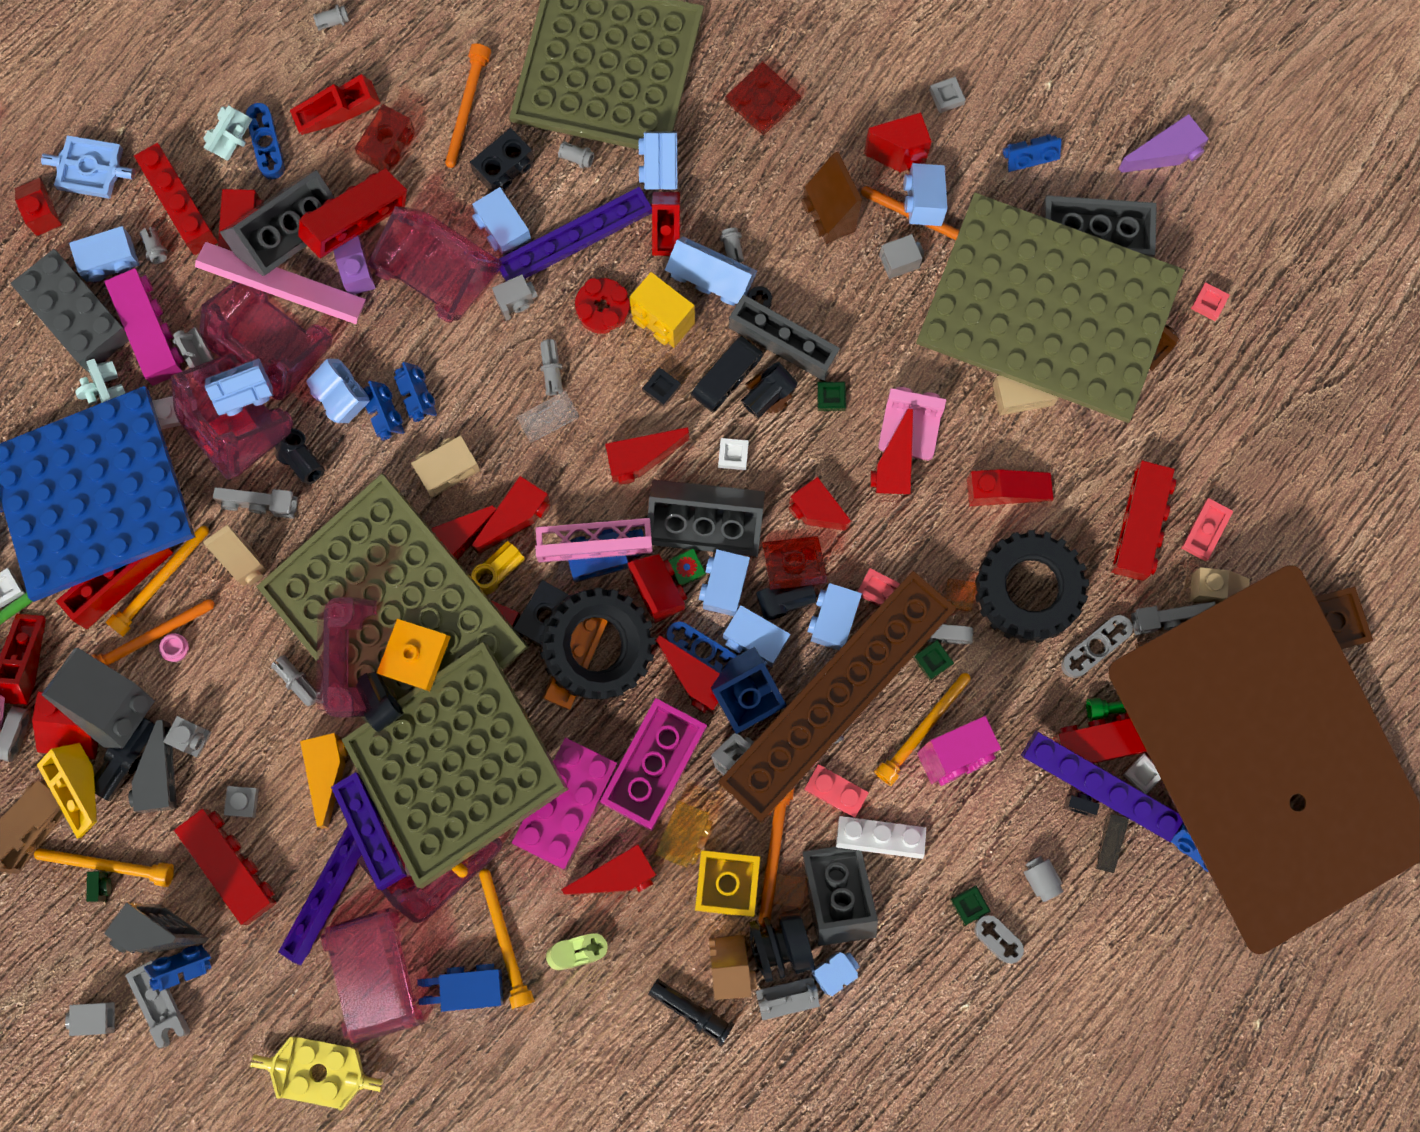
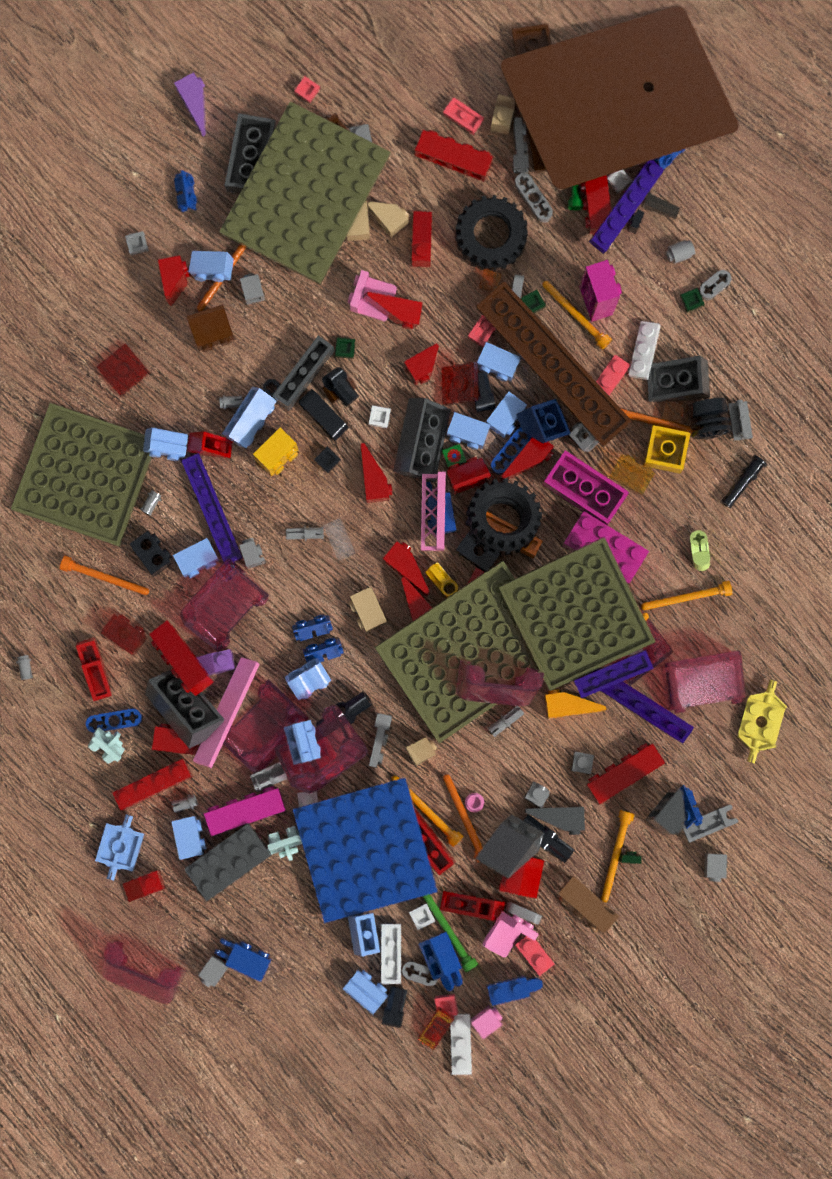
camera: 85 degrees left, 5 degrees up
(72, 785) = (566, 868): yellow slope -> none
(381, 707) = (534, 659): black piece -> none
(413, 655) = (501, 635): light orange plate -> none
(466, 989) = (718, 622): blue hinge -> none
(594, 292) = (266, 505): red plate -> none
(620, 874) = (653, 517): red slope -> none
(730, 968) = (722, 451): medium nougat wedge -> none
(836, 972) = (729, 386): light blue brick -> none
(1035, 437) = (389, 217): none -> tan slope
(1155, 386) = (362, 131): none -> light grey plate

